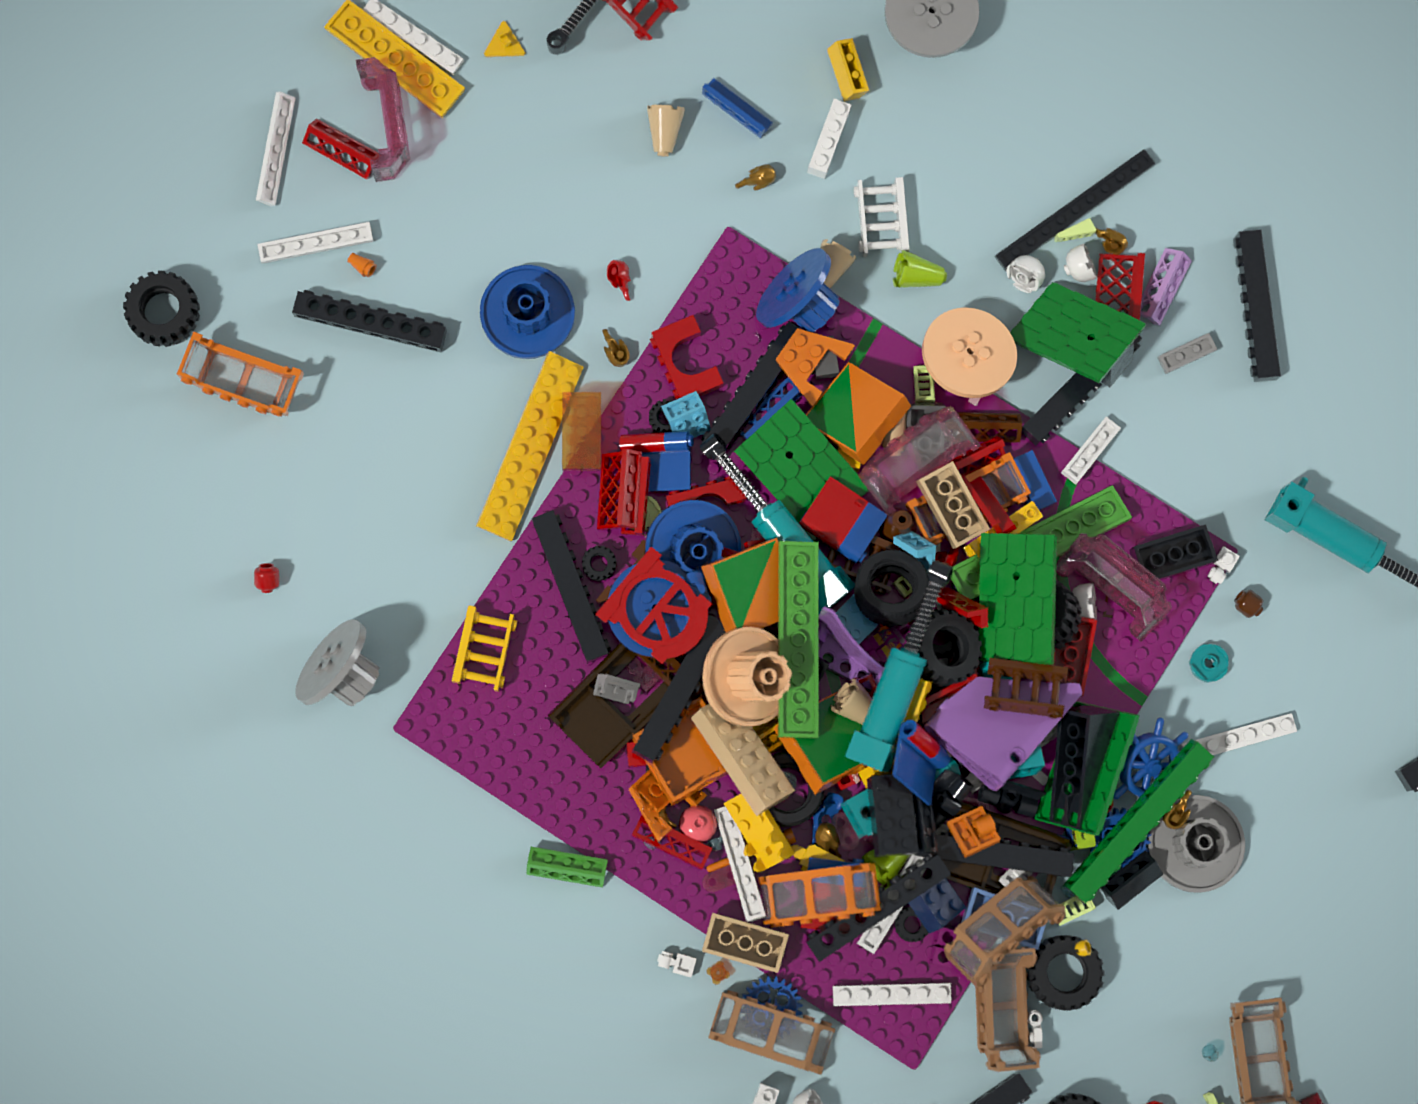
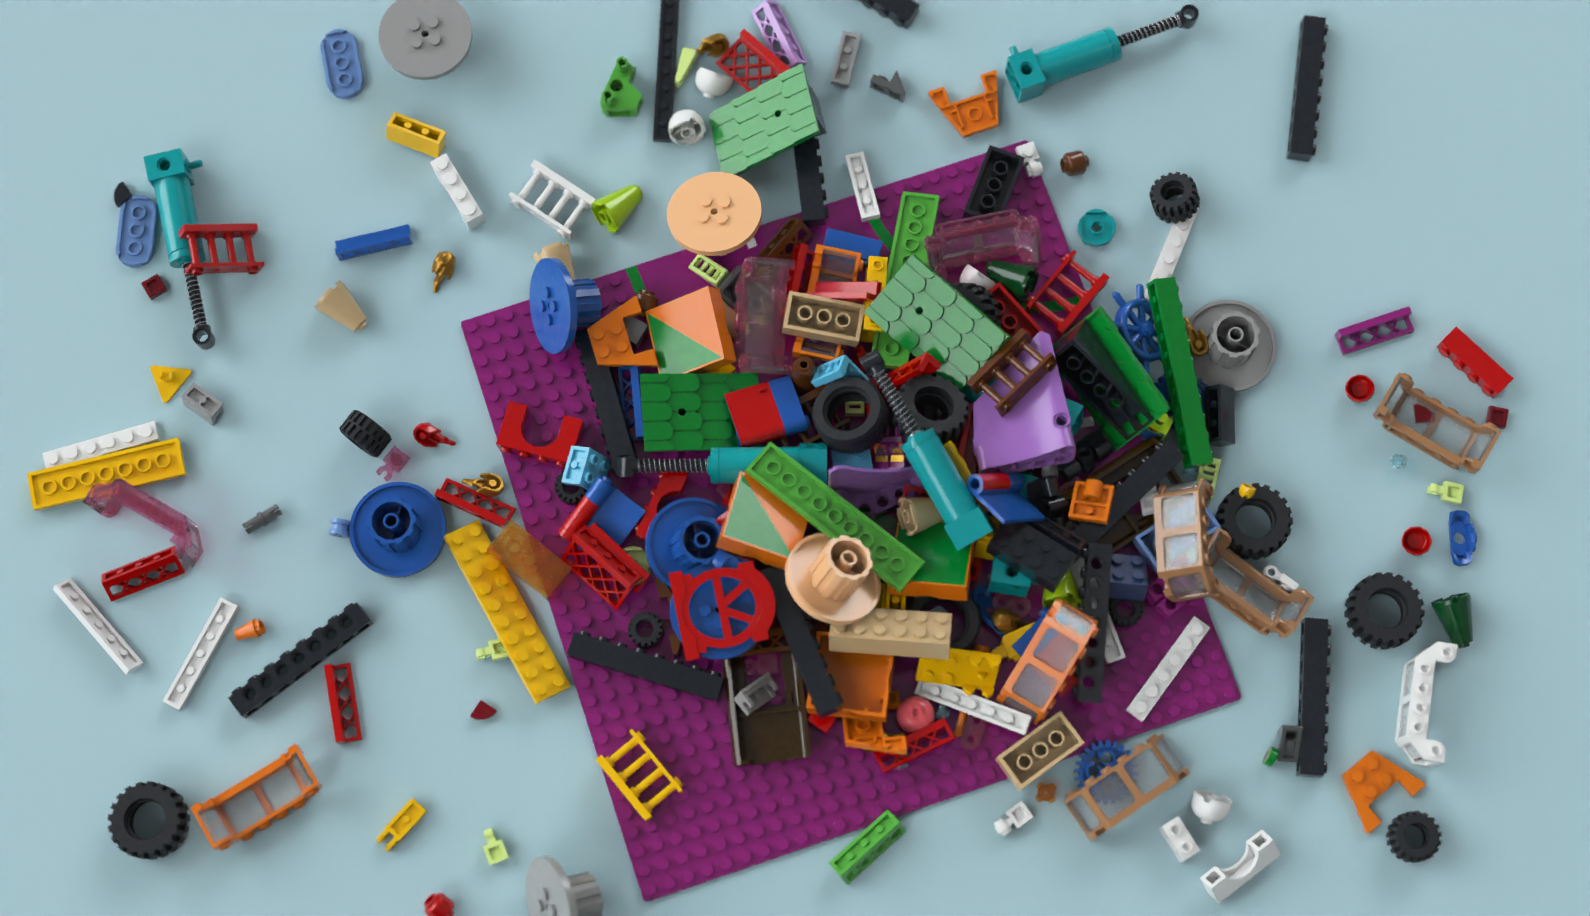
camera: 40 degrees left, 5 degrees down
(308, 498) = (402, 823): none -> yellow hinge
(341, 584) = (495, 850): none -> yellowish green plate
(357, 374) = (335, 703): none -> red fence
(439, 490) = (483, 711): none -> dark red tile
(453, 202) = (262, 518): none -> dark grey pin
(493, 266) = (339, 527): none -> medium blue wheel
(493, 461) = (495, 650): none -> yellowish green plate
(505, 84) = (202, 403): none -> light grey hinge
(578, 265) = (395, 461): none -> clear pink plate
(579, 226) = (365, 433): none -> black tyre
(587, 352) = (471, 508): none -> red fence
(859, 356) = (647, 301): none -> reddish brown head
(1010, 209) = (628, 99): none -> bright green piece
(1111, 629) = (1015, 277): none -> dark green cone
(1142, 697) = (1085, 297): none -> red fence
(1192, 410) = (892, 89): none -> dark grey slope
(1226, 491) = (974, 113): none -> orange wing
(1245, 976) = (1359, 388): none -> red hair
(1265, 1043) = (1422, 414): none -> dark red tile
(1289, 694) = (1178, 209): none -> black tyre
(1308, 946) = (1371, 324): none -> magenta fence
(1342, 1054) = (1474, 363): none -> red brick

